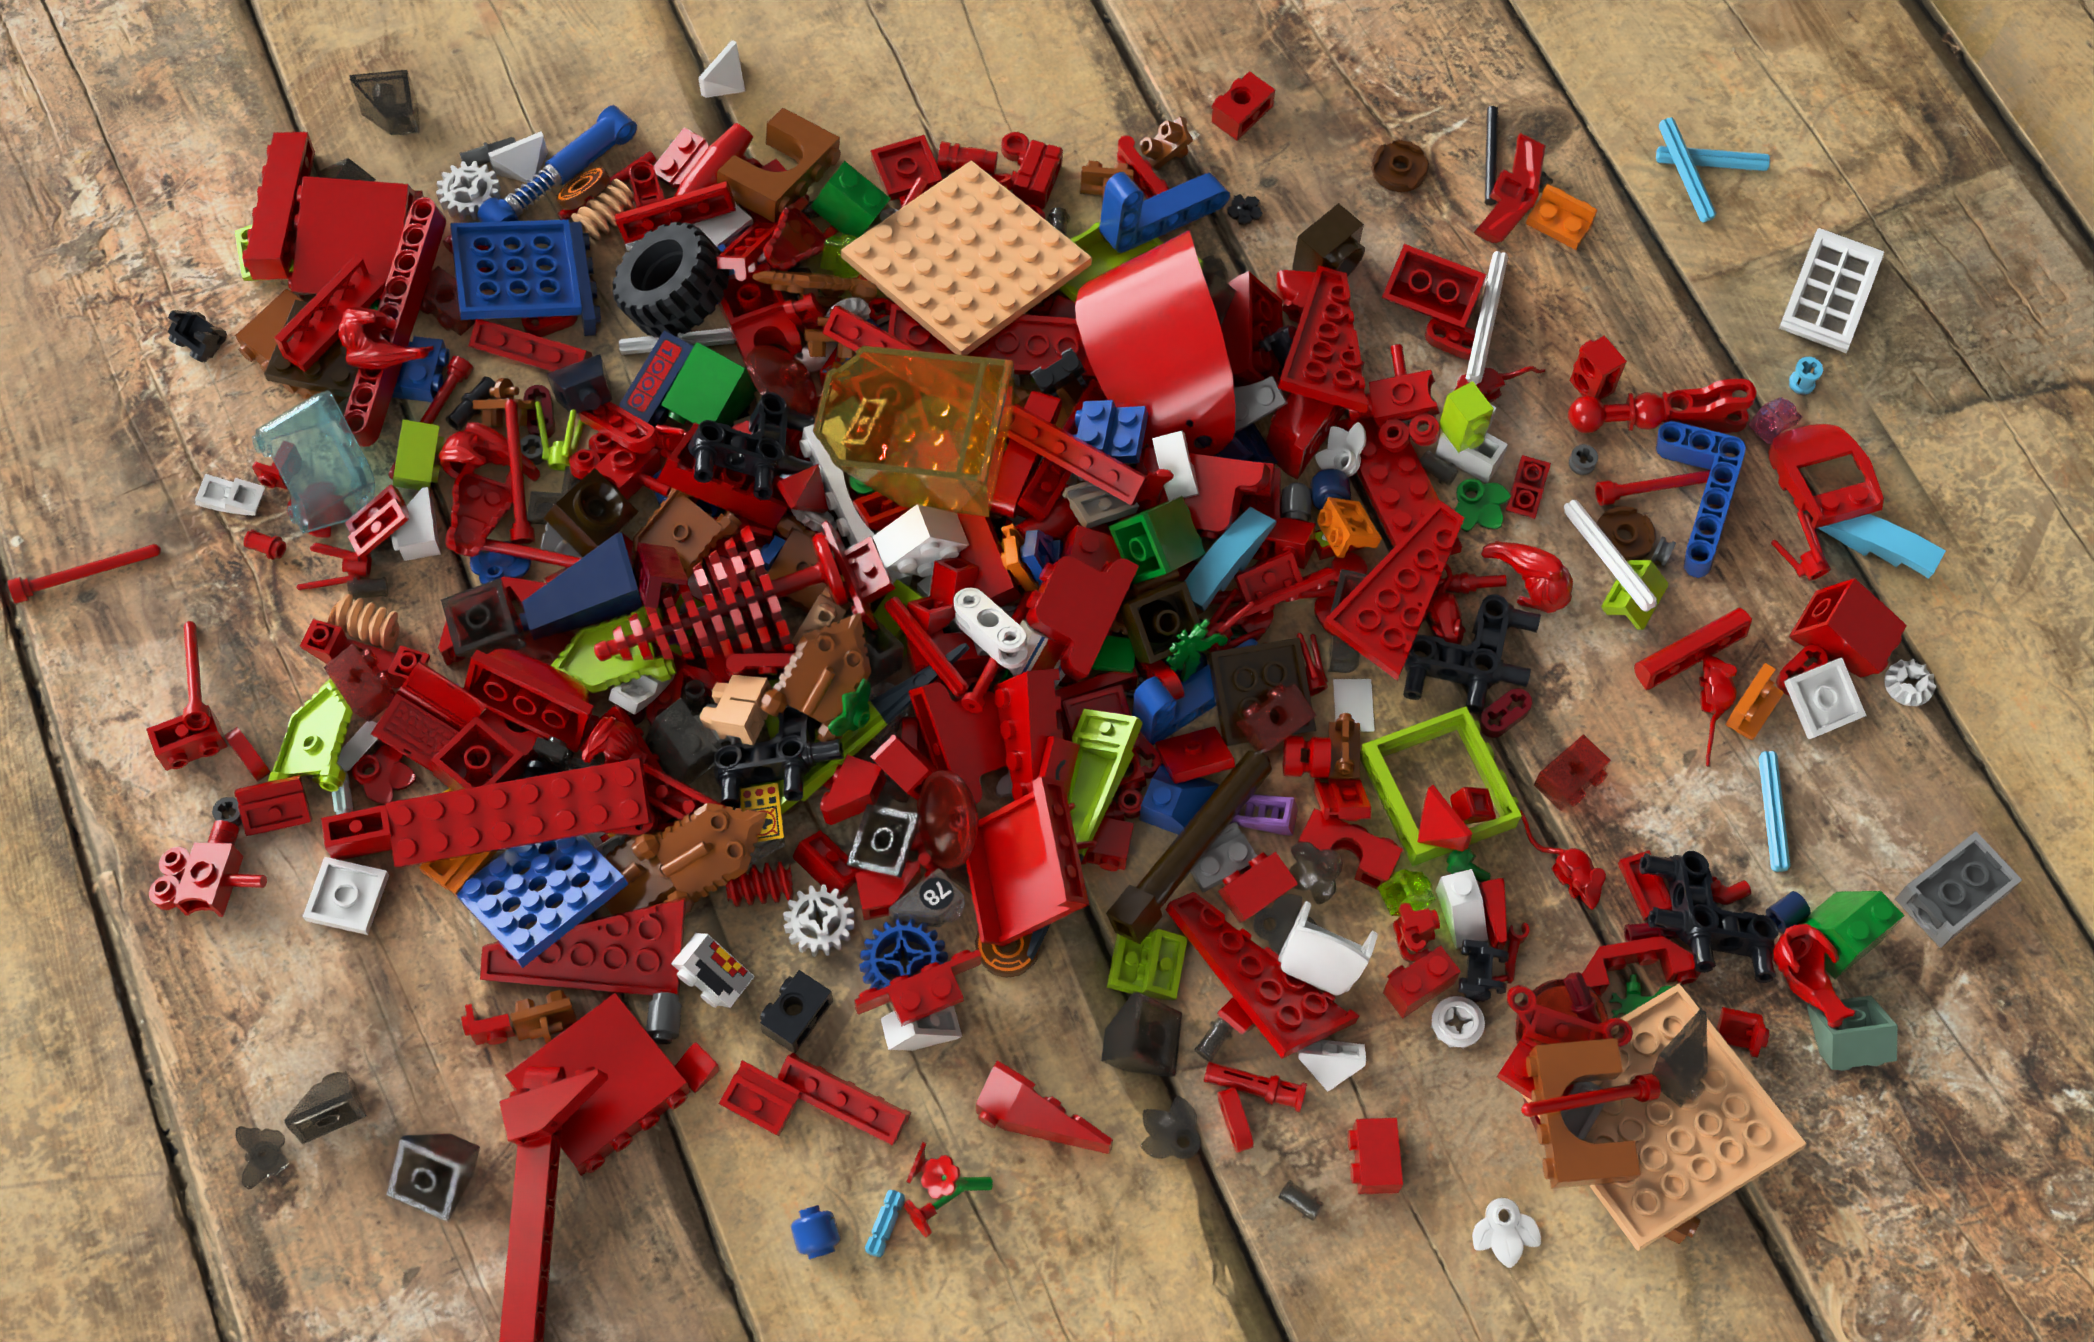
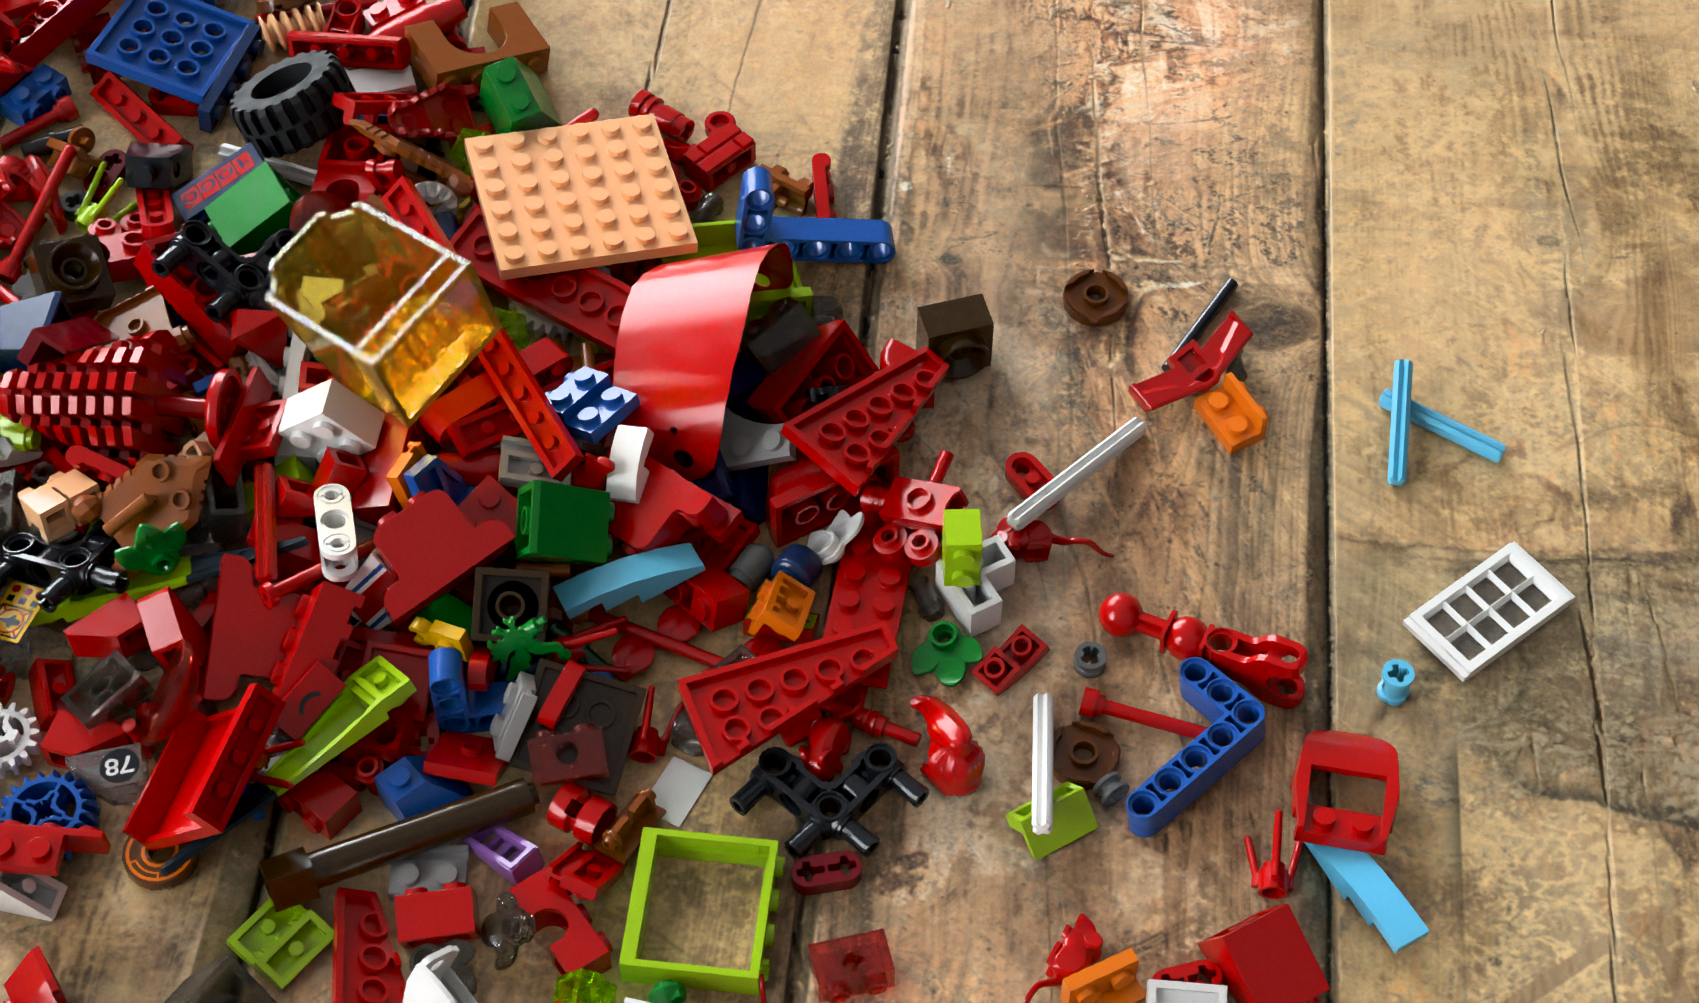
camera: 30 degrees right, 10 degrees down
(903, 163) = (605, 93): red plate -> none
(1060, 373) = (587, 336): black piece -> none
(1122, 671) = (442, 635): none -> yellow plate
(1170, 142) = (867, 179): dark orange hips -> none
(1216, 706) = (510, 724): none -> light grey plate
(1242, 105) = (969, 176): red brick -> none
(1244, 209) = (906, 273): black plant -> none
(1246, 673) = (561, 694): none -> red beam
(1274, 582) = (663, 625): red bracket -> none
(1434, 286) = (1040, 421): red slope -> none
(1441, 824) = (657, 942): red slope -> none
(1473, 805) = (713, 943): red slope -> none
(1597, 368) = (1157, 573): red brick -> none
(1691, 648) = (1066, 902): red brick -> none
(1774, 419) = (1332, 709): clear pink bracket -> none

